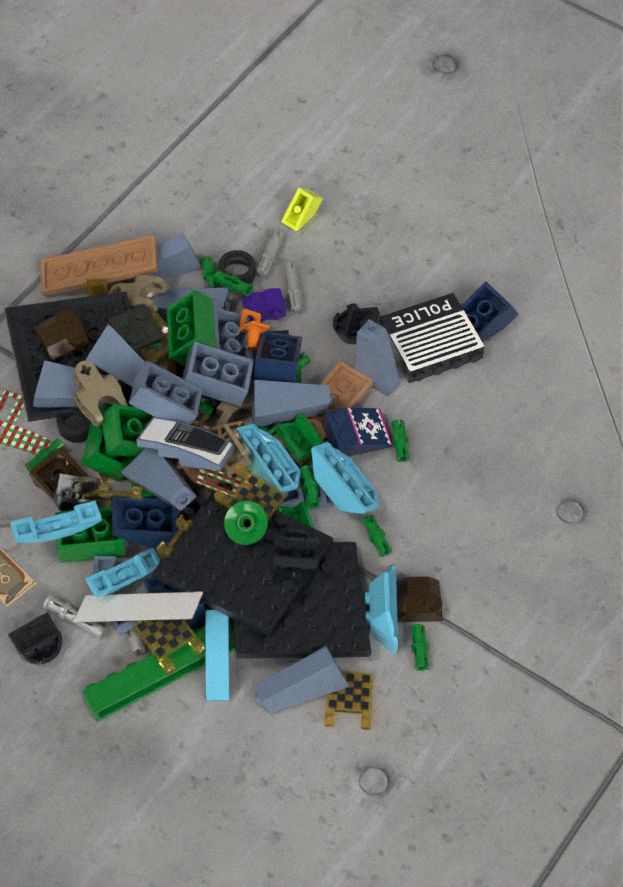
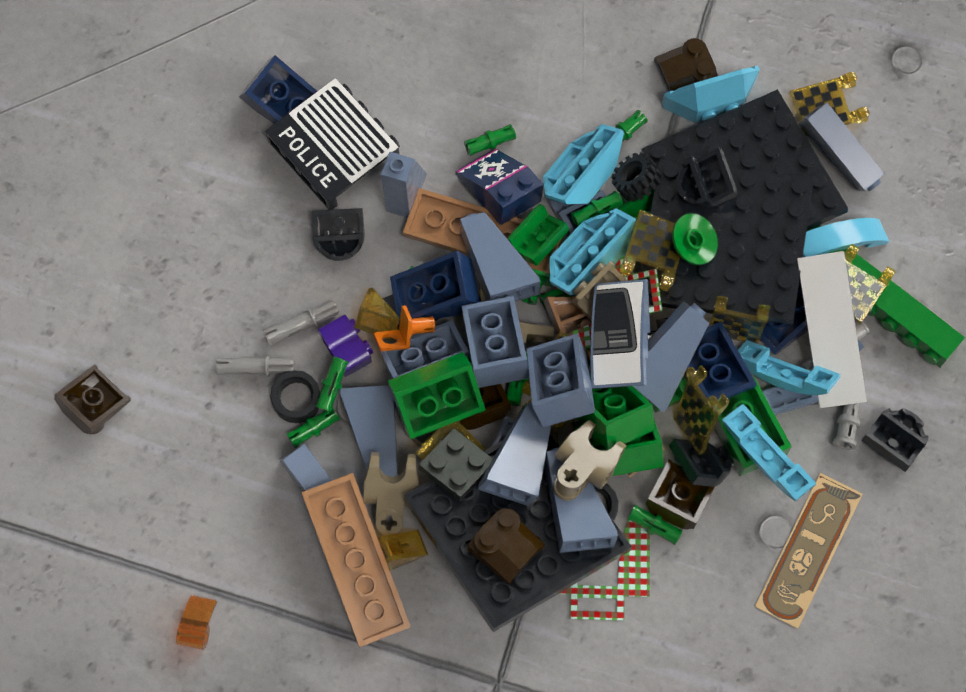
camera: 105 degrees left, 15 degrees up
(103, 179) = (194, 624): none -> clear orange panel
(280, 319) = (376, 314): none -> clear yellow slope
(281, 156) = (91, 400): none -> dark brown slope
(302, 208) = (173, 347): neon yellow slope -> none
(324, 517) = (641, 185): none -> black tyre
(419, 647) = (745, 52): green pin -> none

